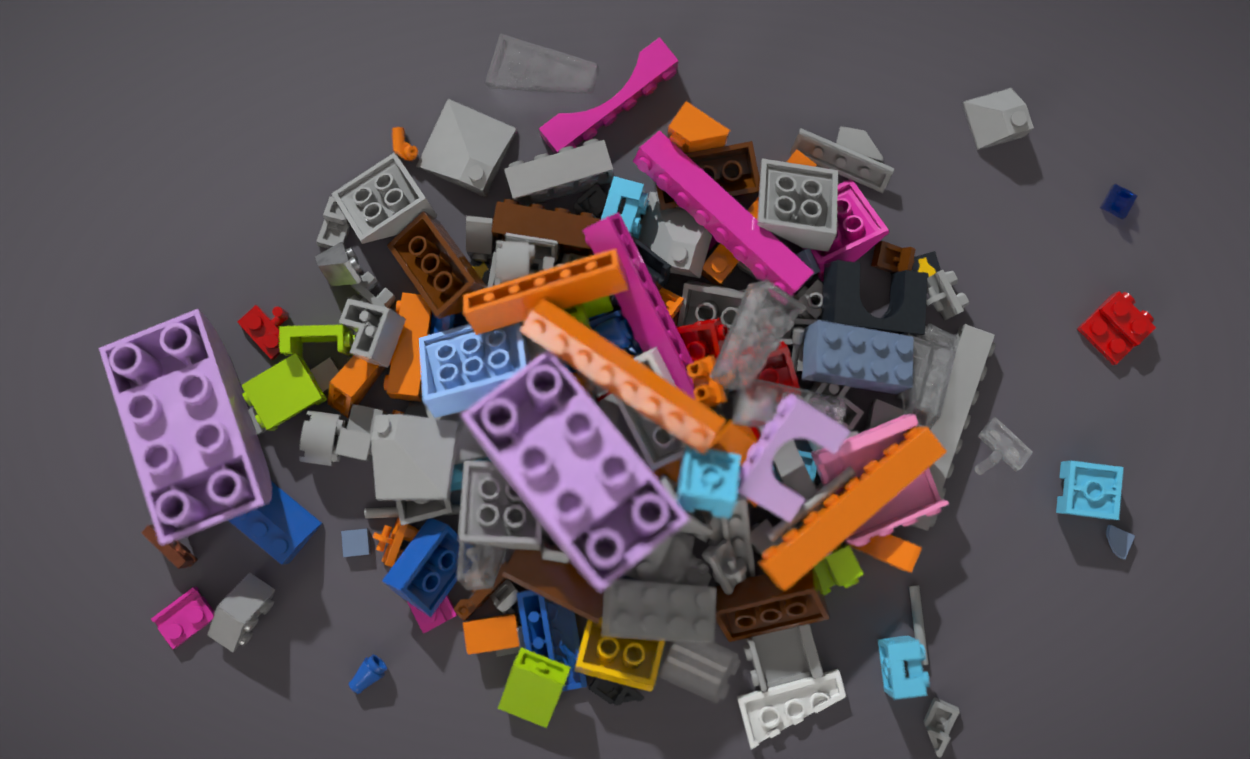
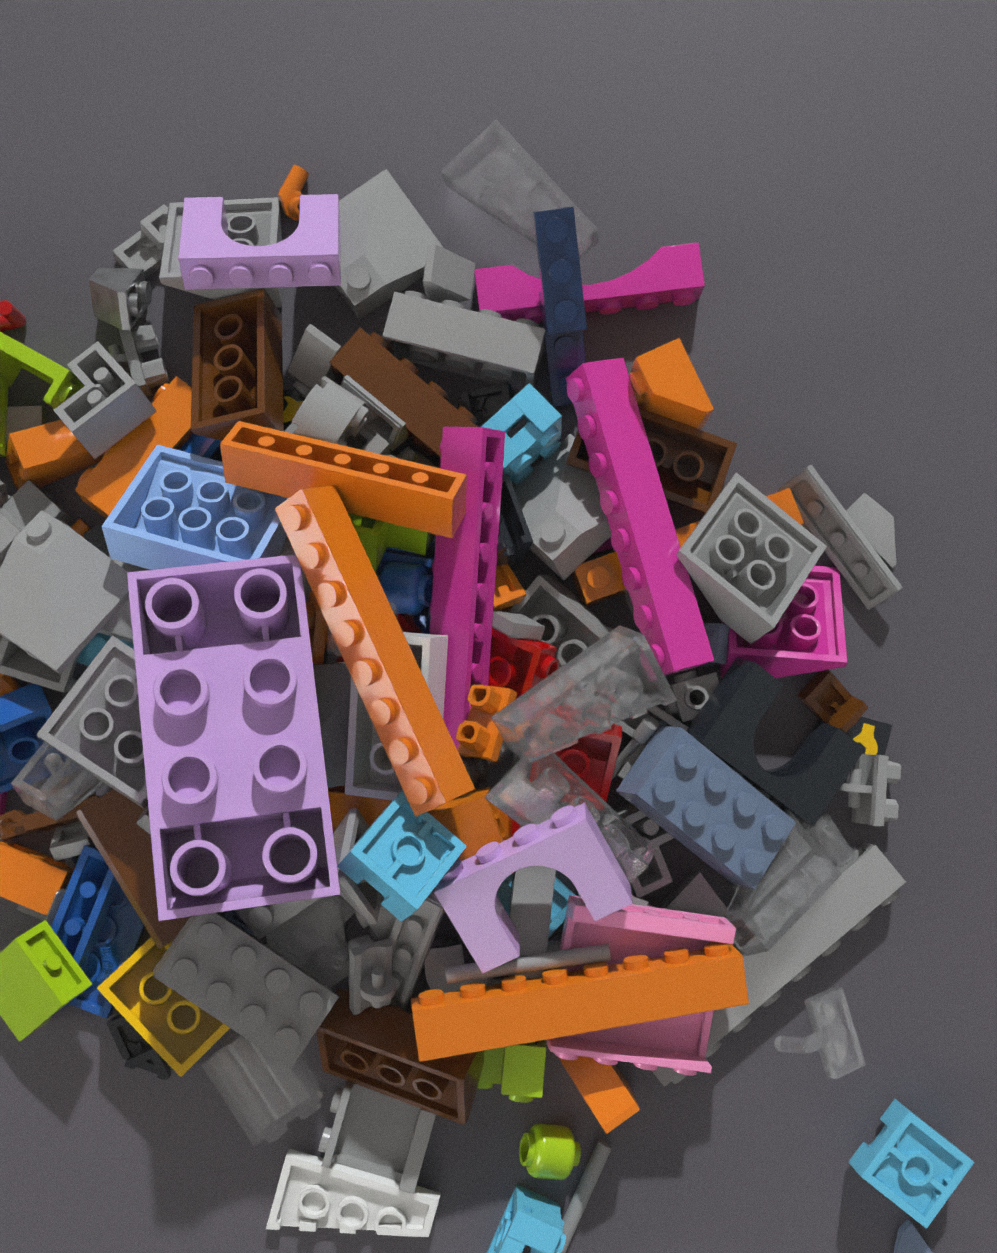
camera: 30 degrees right, 0 degrees up
(391, 211) = (304, 259): none -> lavender arch
(527, 141) = (447, 275): none -> light grey slope
(603, 118) = (560, 297): none -> dark blue bracket
(690, 319) = (517, 626): none -> light grey tile
(885, 607) = (549, 1151): none -> lime head

